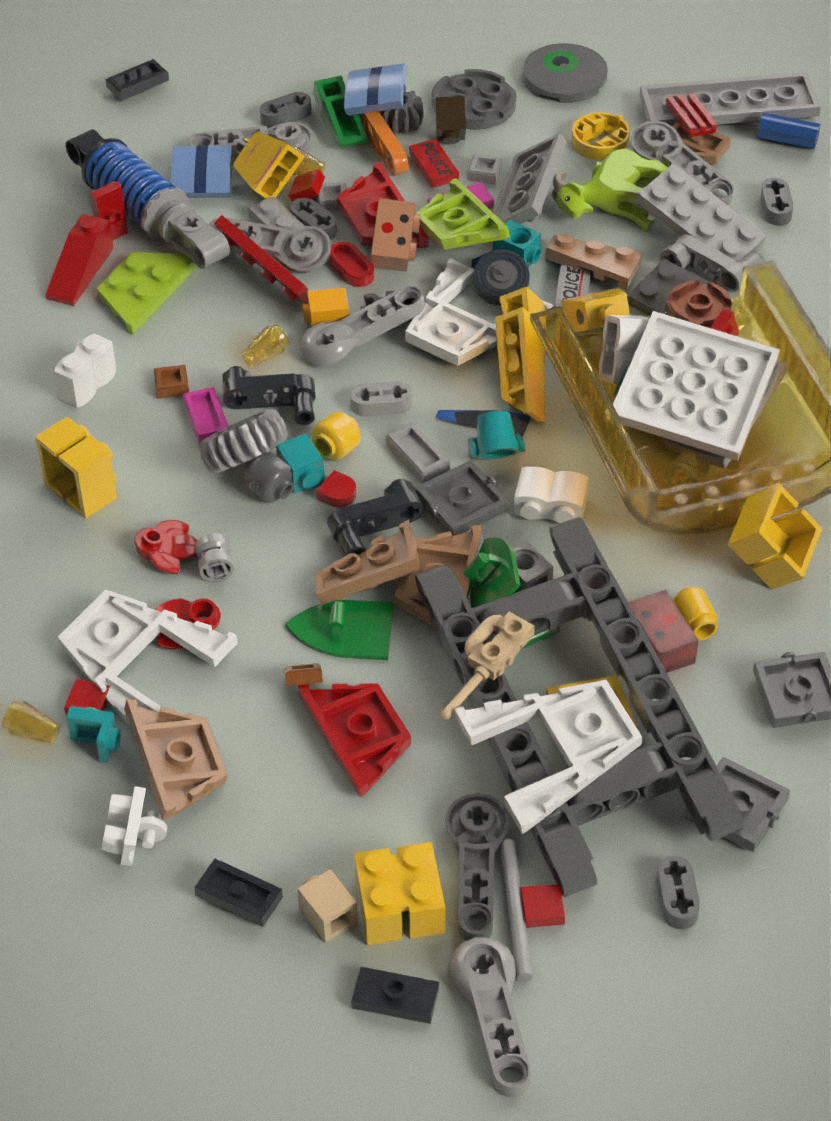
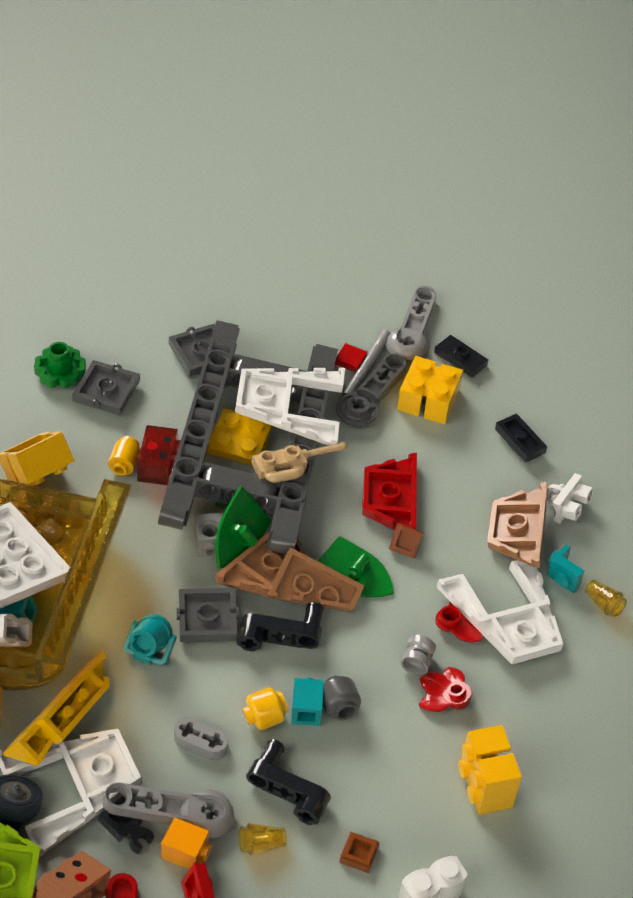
camera: 155 degrees left, 0 degrees up
(85, 695) = (560, 603): red tile -> none
(204, 412) = (350, 799): dark pink tile -> none
(243, 441) = (357, 716): light grey gear -> none
(327, 905) = (474, 405): tan brick -> none
(337, 490) = (286, 671): red tile -> none
(417, 452) = (207, 677): light grey tile -> none
(469, 418) = (127, 680): black sticker -> none
(550, 494) = (145, 581): white brick -> none
(685, 891) = (268, 328): dark grey beam -> none

